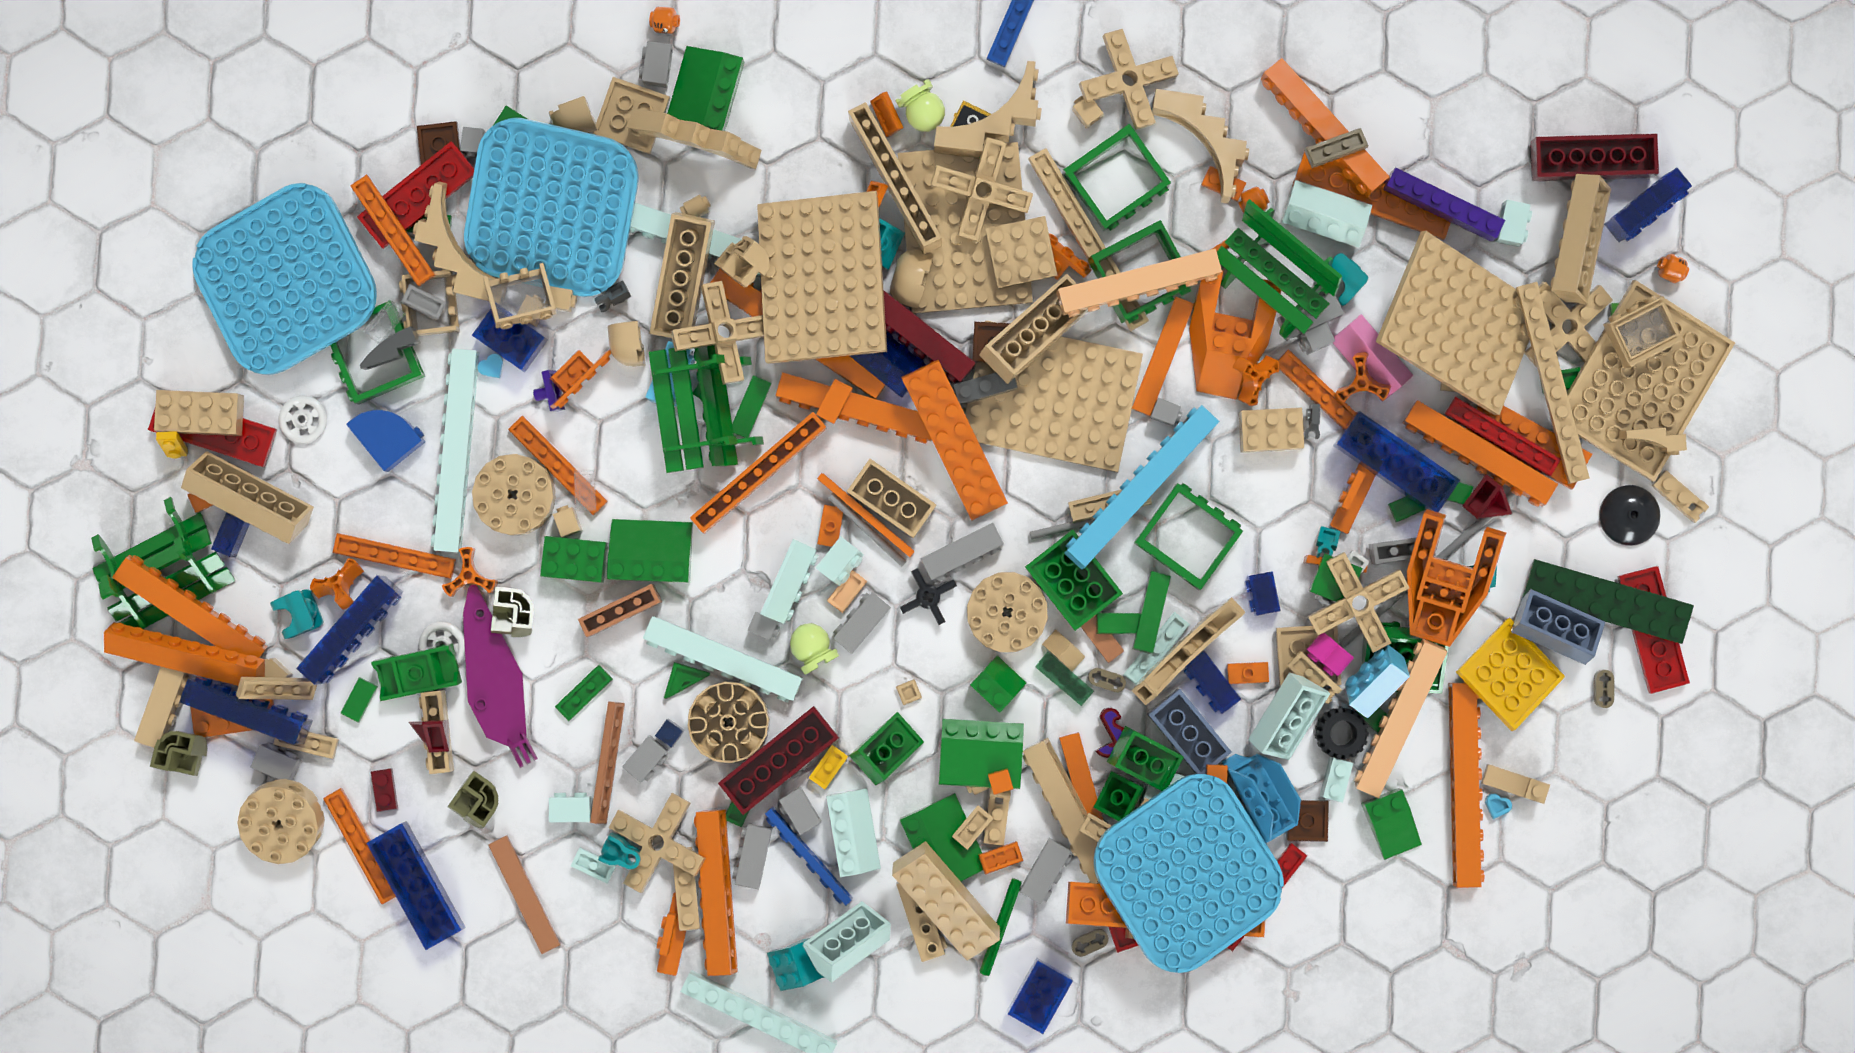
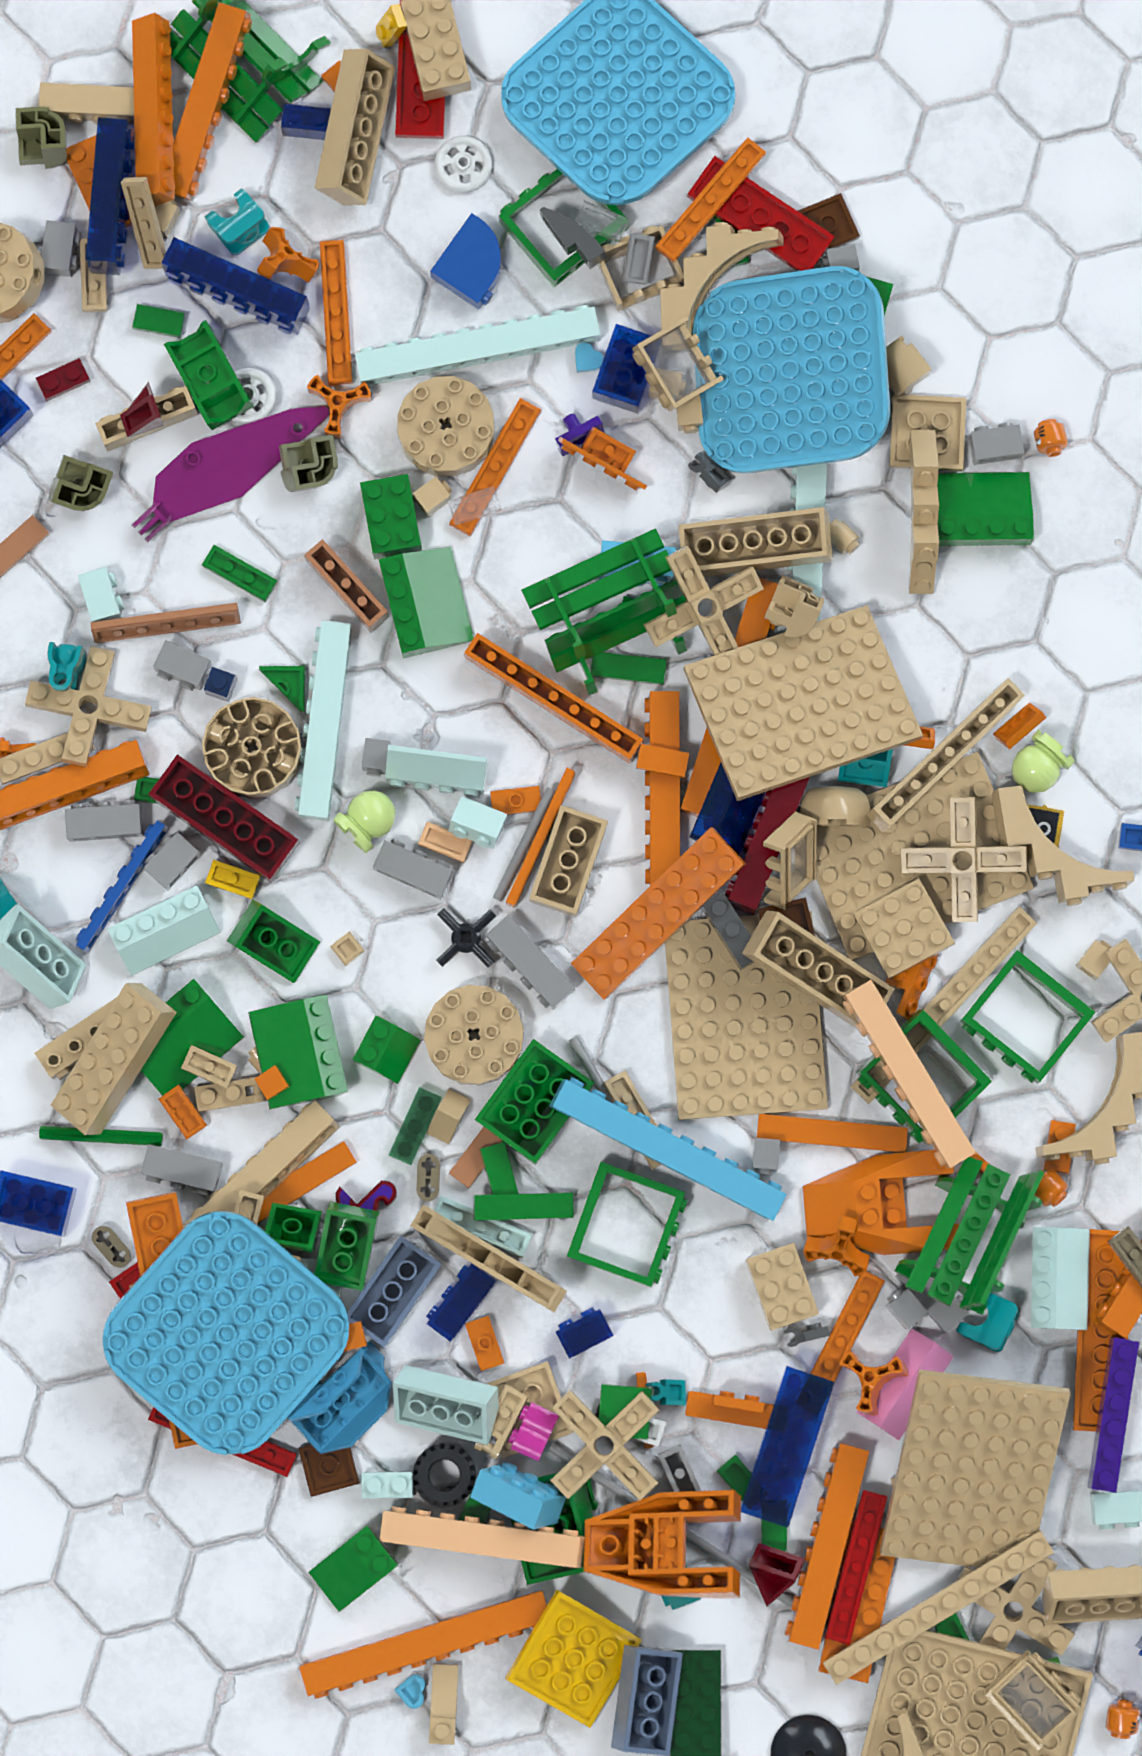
camera: 75 degrees right, 5 degrees down
(589, 864) = (42, 632): light aqua plate -> none
(626, 343) = (659, 502): tan brick -> none
(935, 316) = (797, 844): none -> tan window

